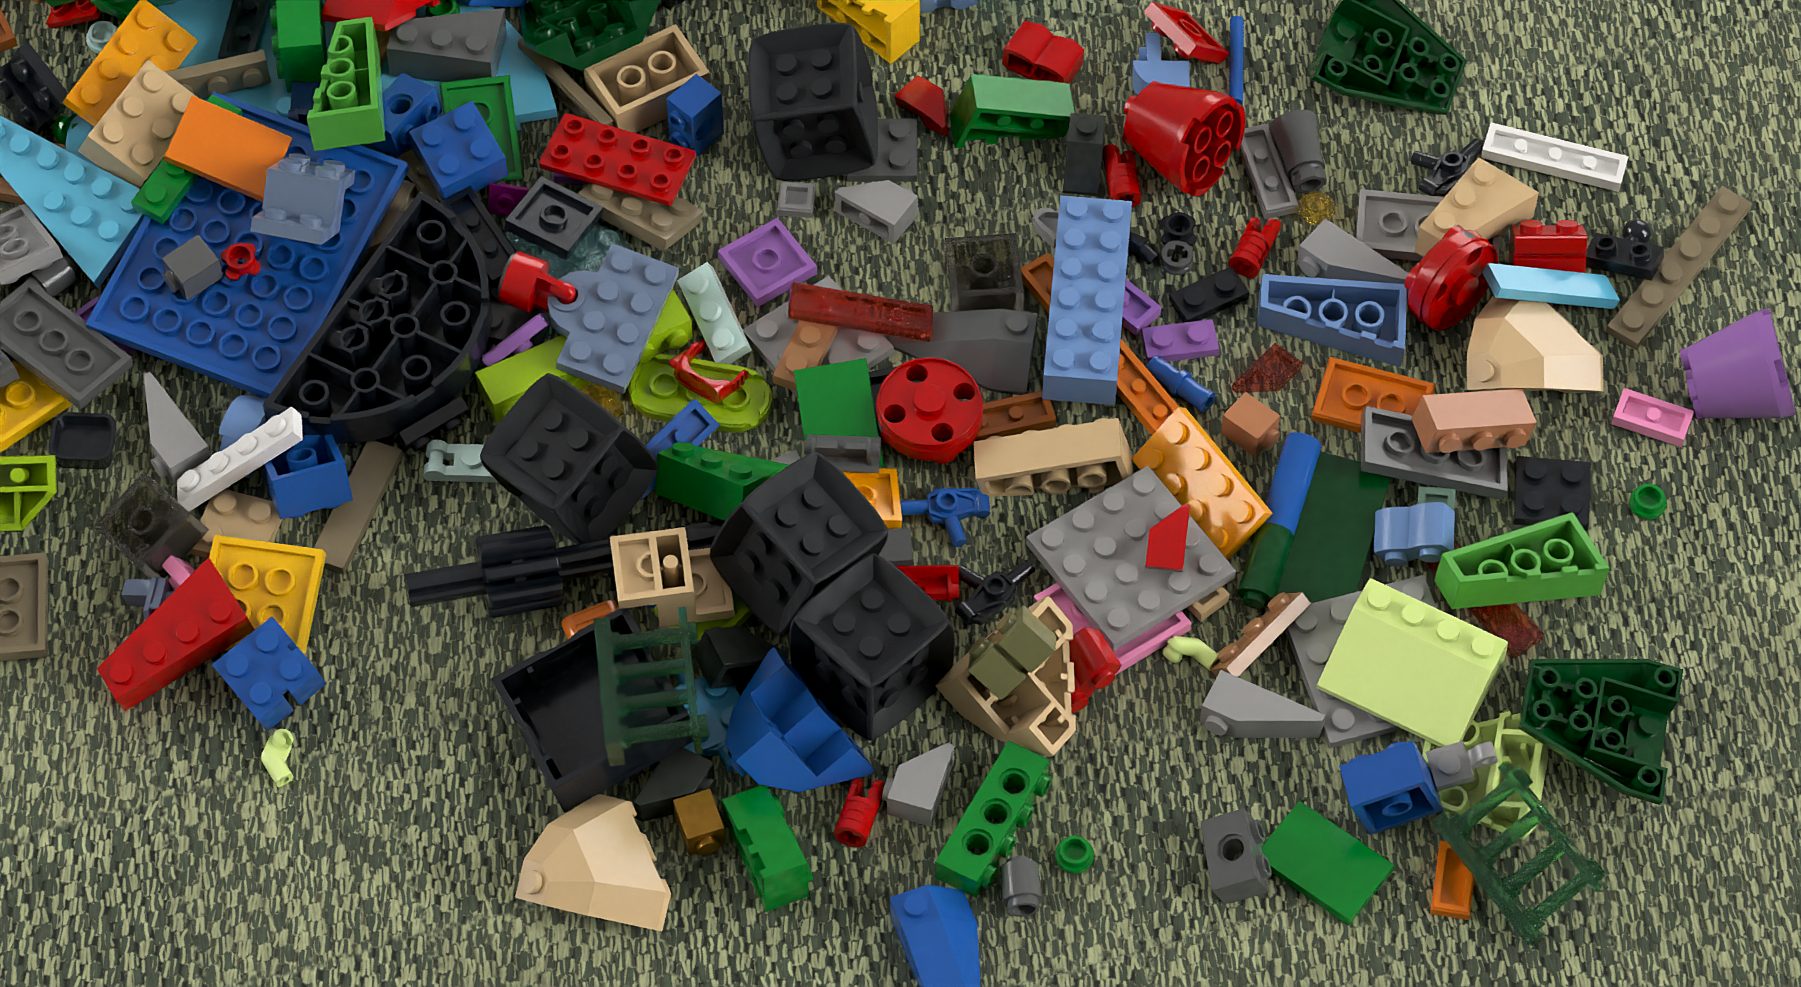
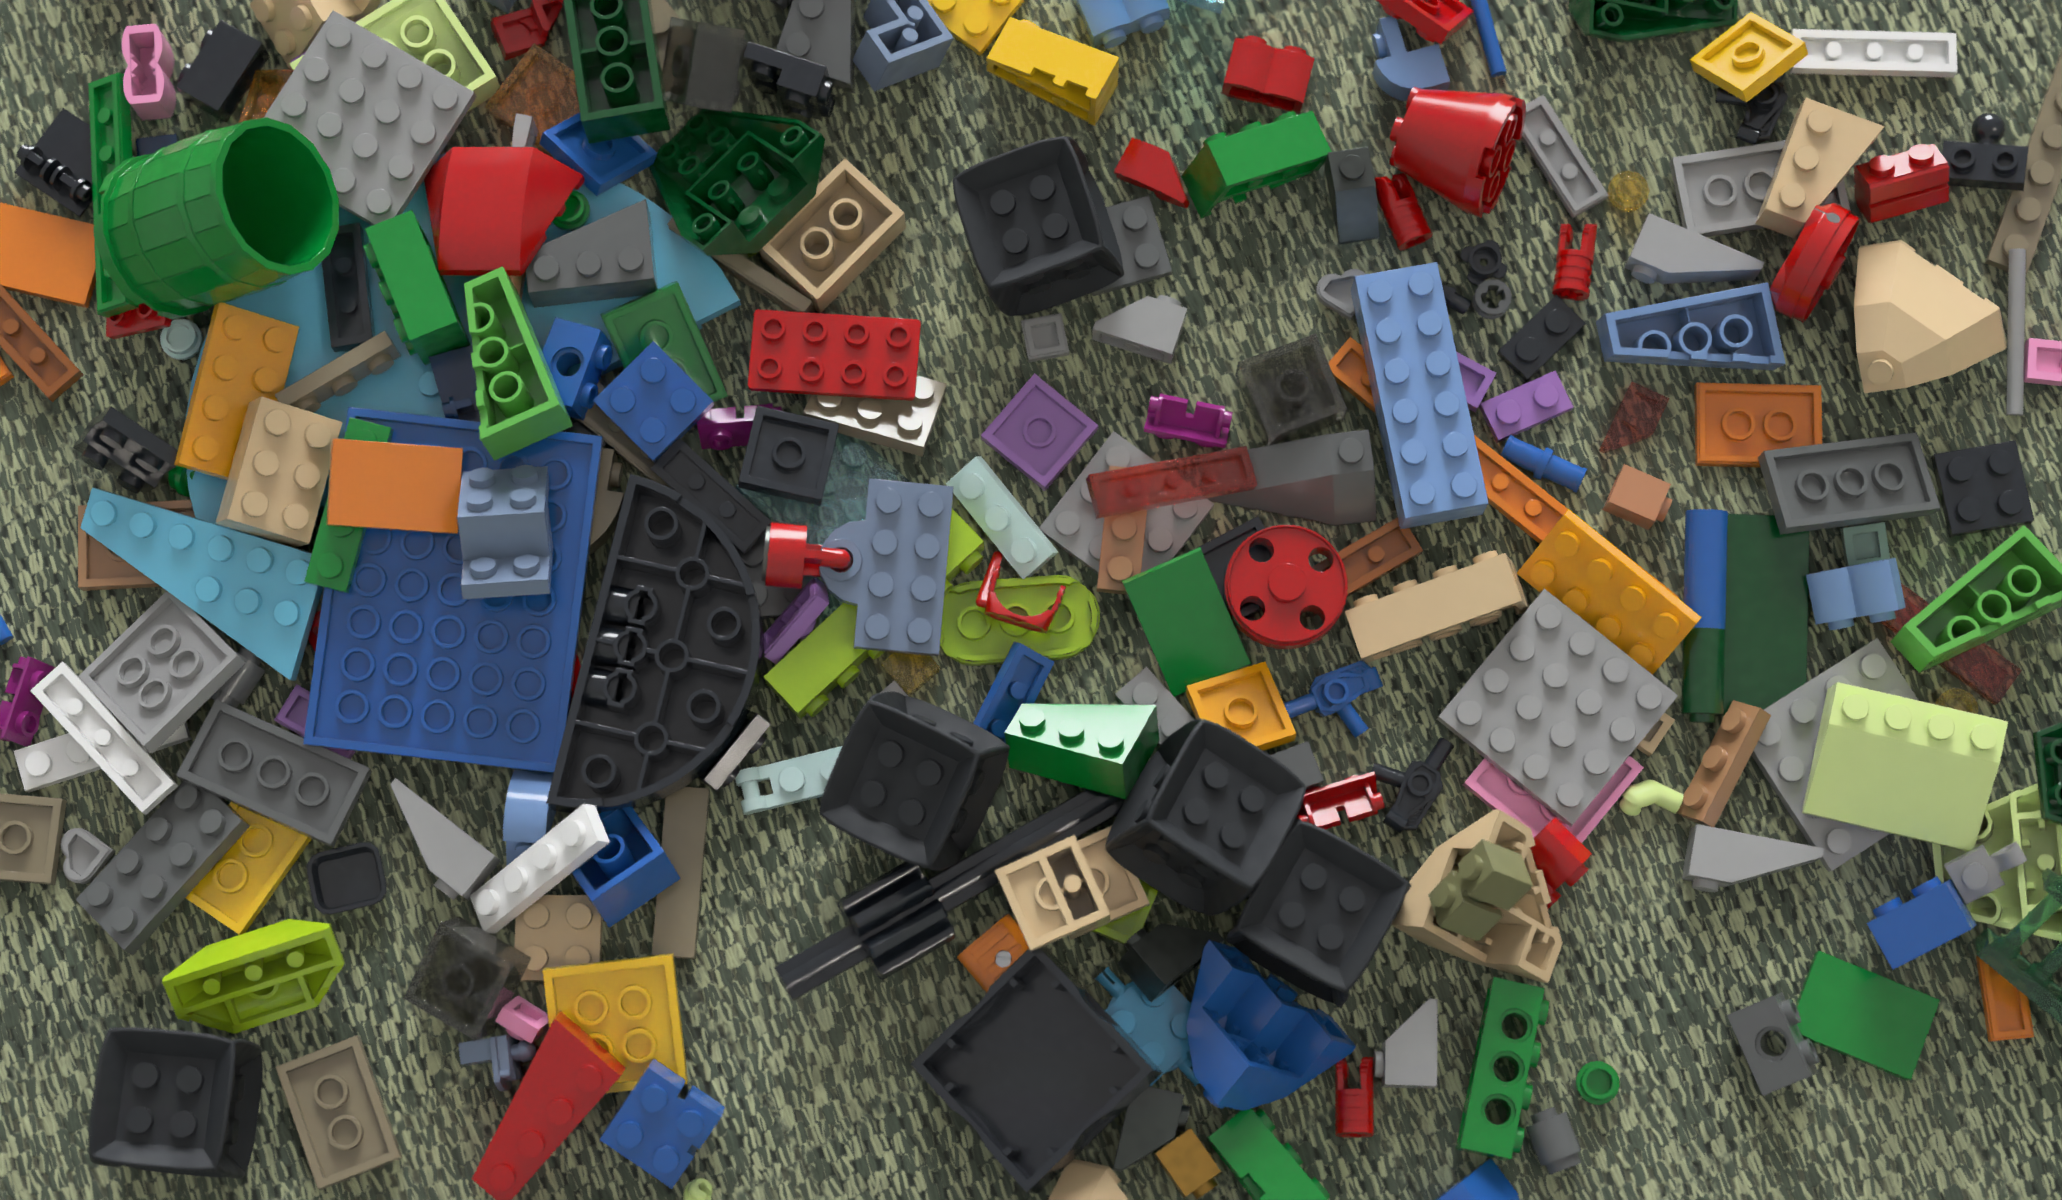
camera: 15 degrees left, 20 degrees up
(191, 268) = (403, 648): dark grey brick -> none
(238, 252) = (456, 607): red plate -> none
(615, 674) = (1057, 1041): clear green fence -> none
(695, 115) = (902, 271): blue brick -> none
(847, 452) = (1205, 666): dark grey hinge -> none
(879, 277) = (1169, 420): none -> magenta hinge
(1168, 541) = (1601, 688): red slope -> none
(1300, 149) = (1592, 125): dark grey plant -> none
(1446, 131) = (1749, 57): none -> yellow plate
(1473, 420) = (1886, 437): brick -> none
(1550, 286) = (1921, 235): medium azure tile -> none
(1614, 382) = (2016, 332): none -> light grey bar

